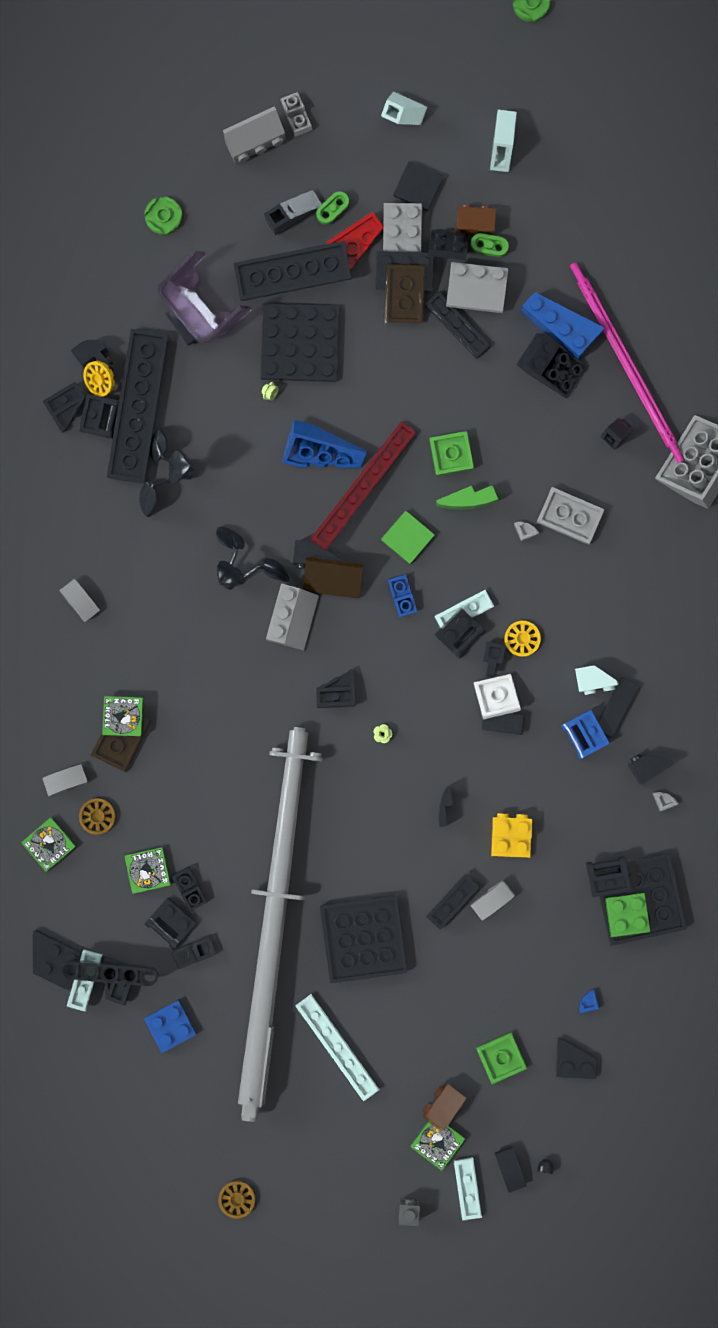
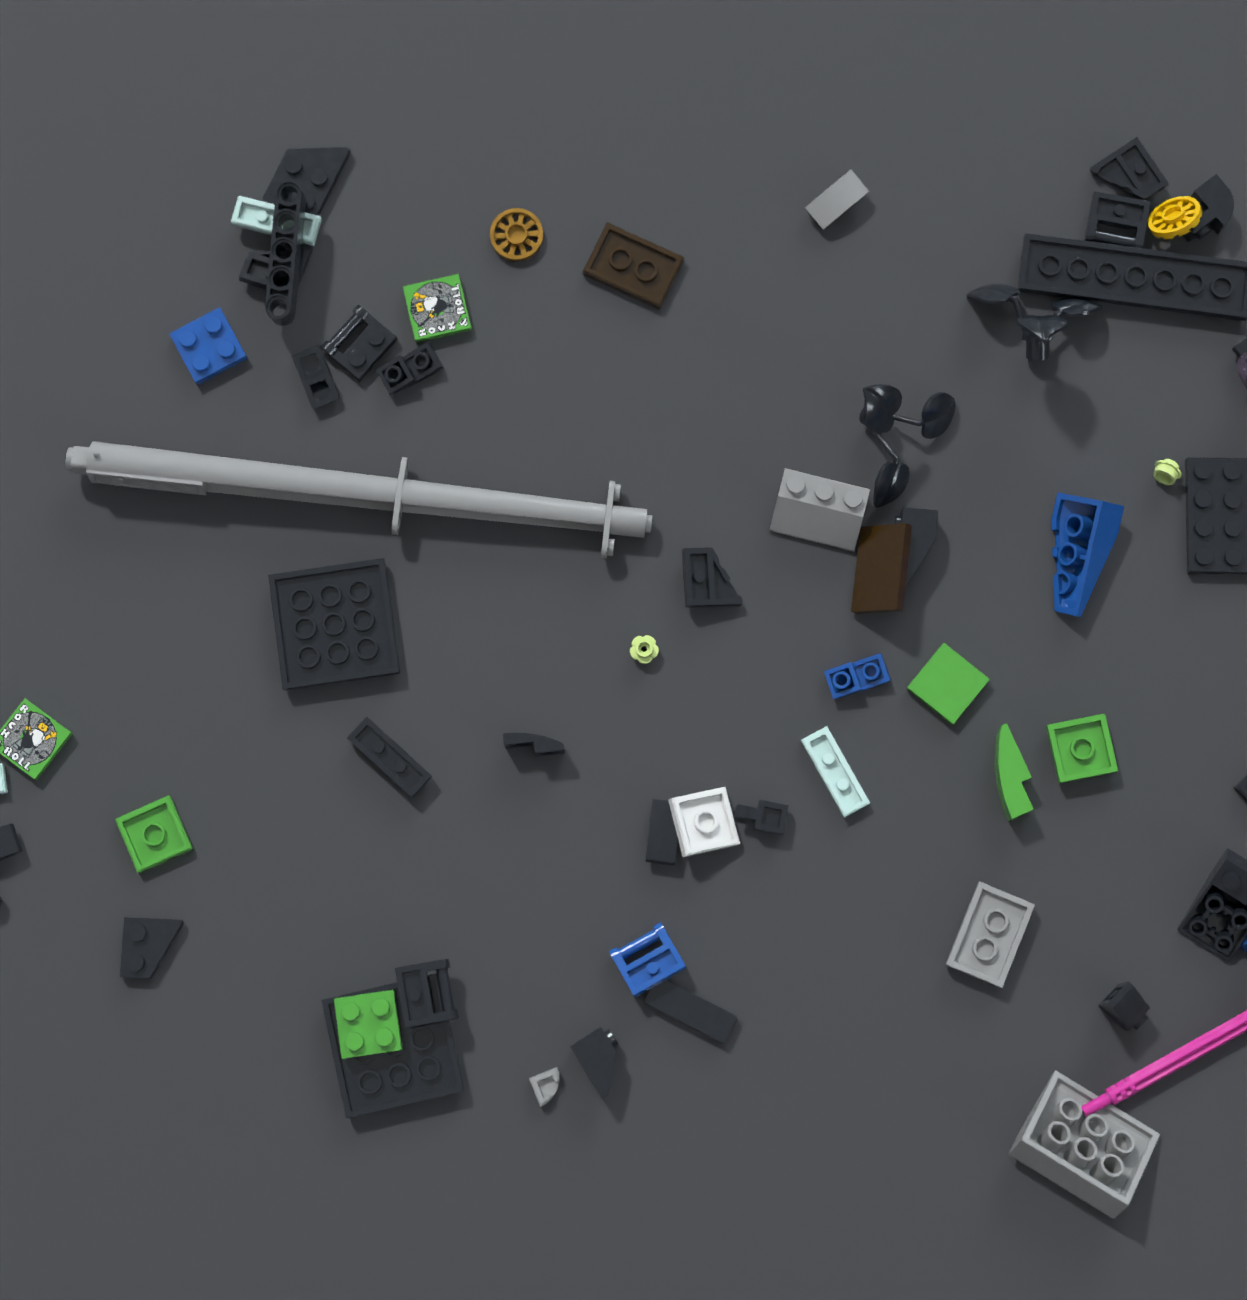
camera: 90 degrees right, 5 degrees down
(48, 844) = (474, 167): tile -> none
(64, 780) = (569, 185): light grey slope -> none
(122, 716) = (664, 265): tile -> none
(337, 1047) = (173, 589): light aqua tile -> none
(363, 486) = (1026, 613): dark red tile -> none
(443, 1107) = (81, 744): reddish brown brick -> none
(455, 628) = (806, 755): black plate -> none
(492, 900) = (391, 817): light grey slope -> none
(511, 836) = (489, 846): yellow plate -> none
(522, 638) = (795, 861): yellow wheel -> none
(525, 530) = (964, 865): light grey tile -> none
(588, 1002) = (235, 967): blue tile -> none
(593, 678) = (734, 970): light aqua slope -> none

